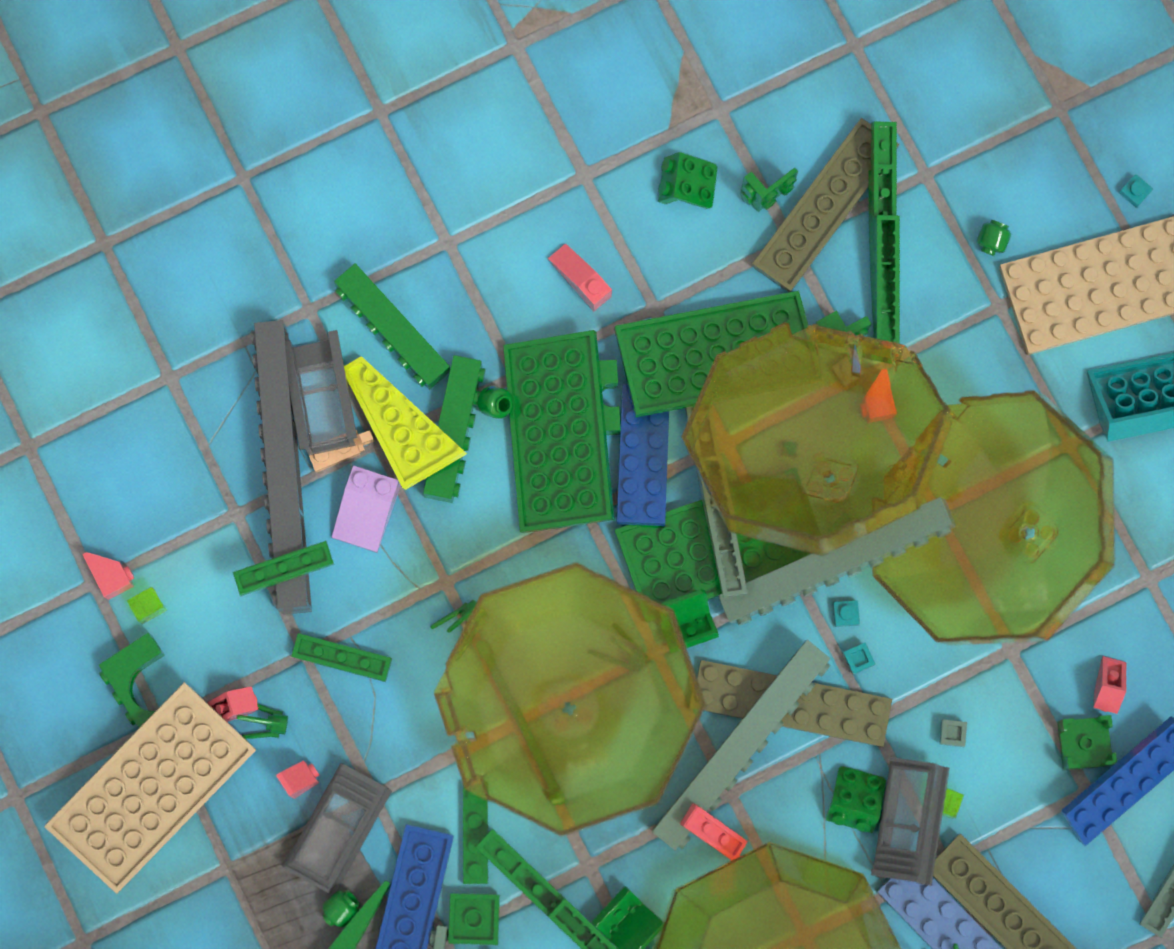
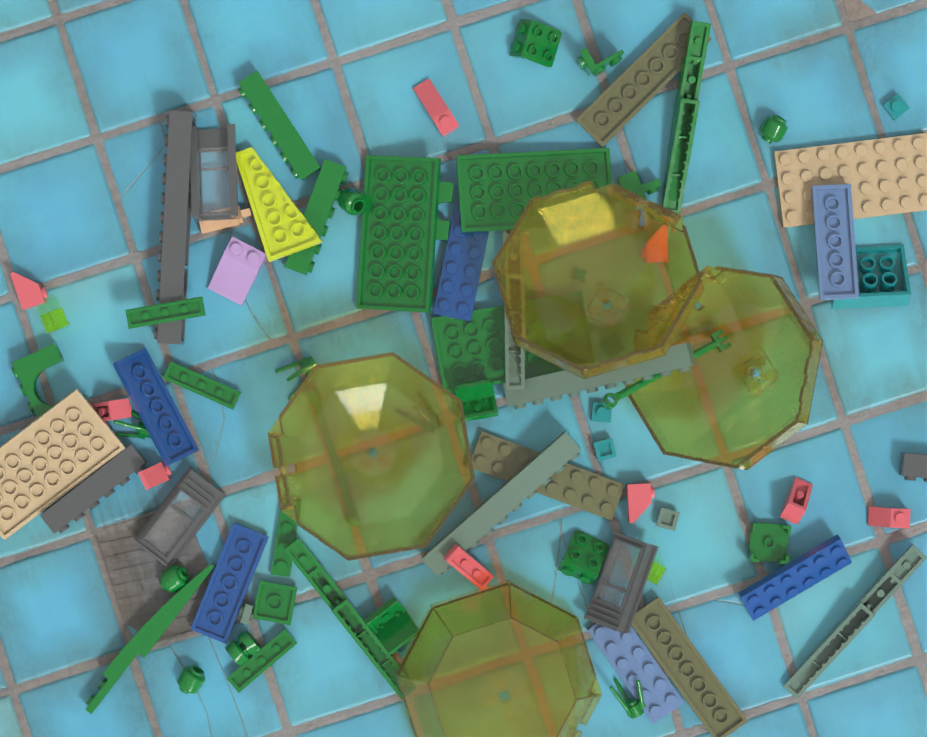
camera: 15 degrees right, 10 degrees up
(221, 810) = (93, 488): none -> dark grey brick
(287, 693) = (155, 407): none -> blue plate
(912, 713) = (638, 499): none -> coral slope
(973, 502) = (715, 343): none -> green hinge
(1096, 357) = (835, 242): none -> medium blue plate

